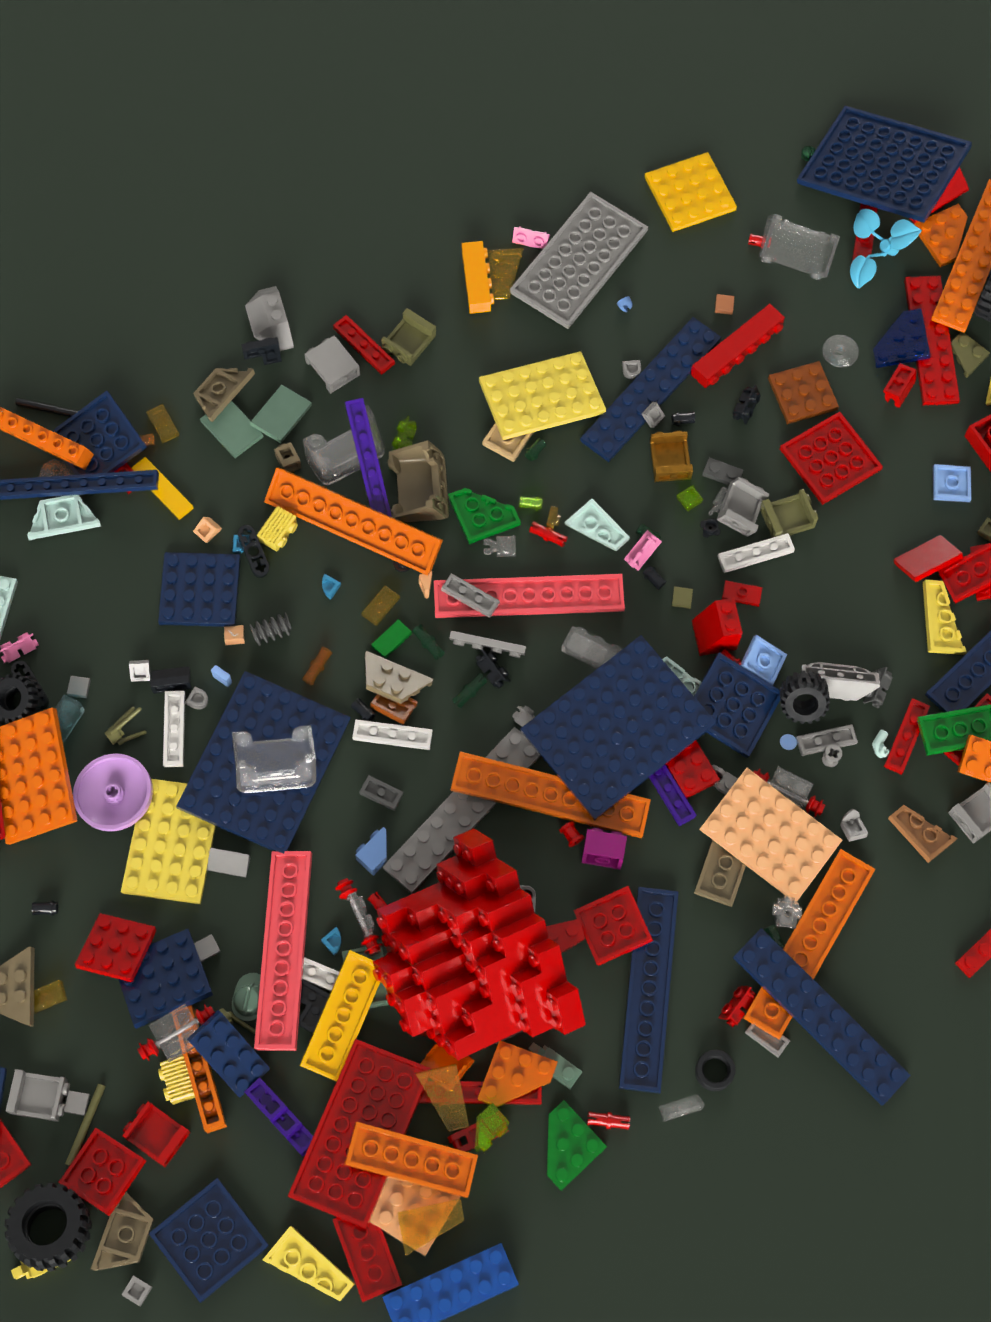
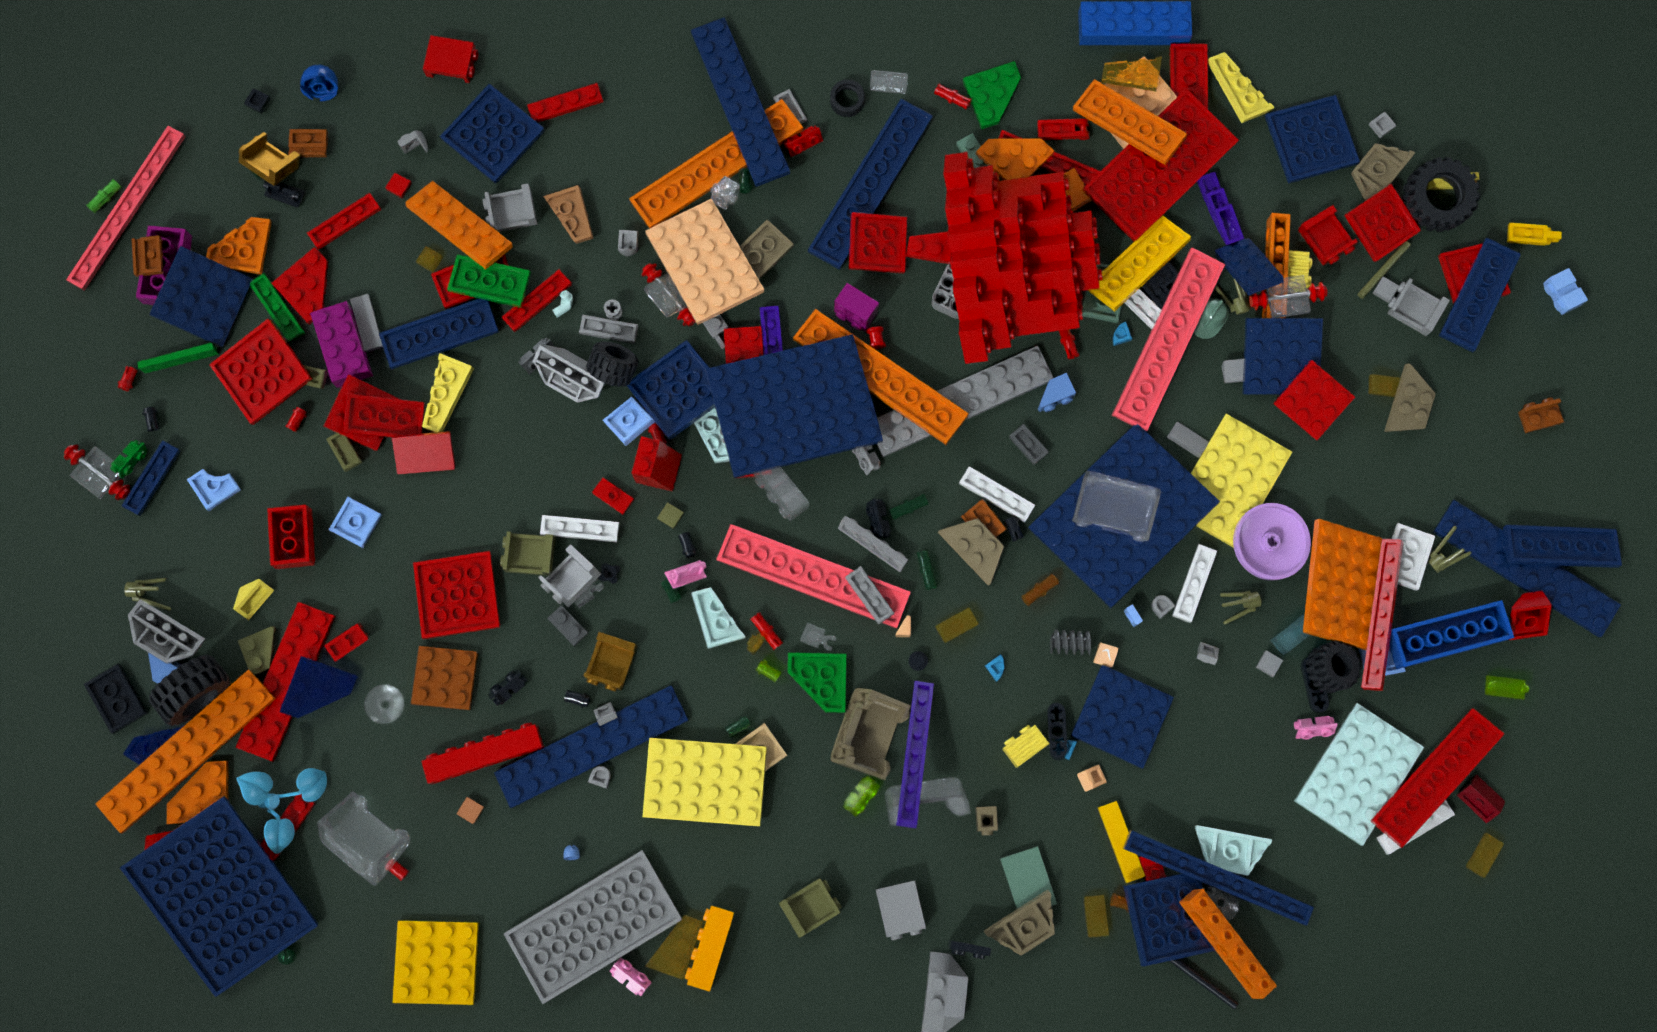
camera: 155 degrees left, 10 degrees up
(45, 908) = (1363, 464): black pin -> none
(170, 680) = (1181, 634): black panel -> none
(281, 413) = (973, 873): sand green tile -> none
(353, 521) = (951, 717): orange plate -> none
(363, 344) = (858, 920): red plate -> none
(365, 921) = (1091, 333): plate -> none
(391, 639) = (959, 588): green tile -> none
(446, 1095) = (1079, 162): clear yellow wing -> none
(488, 1126) = (1053, 125): clear neon green slope -> none
(689, 498) = (613, 610): clear neon green plate -> none
(788, 742) = (643, 343): light blue sticker -> none

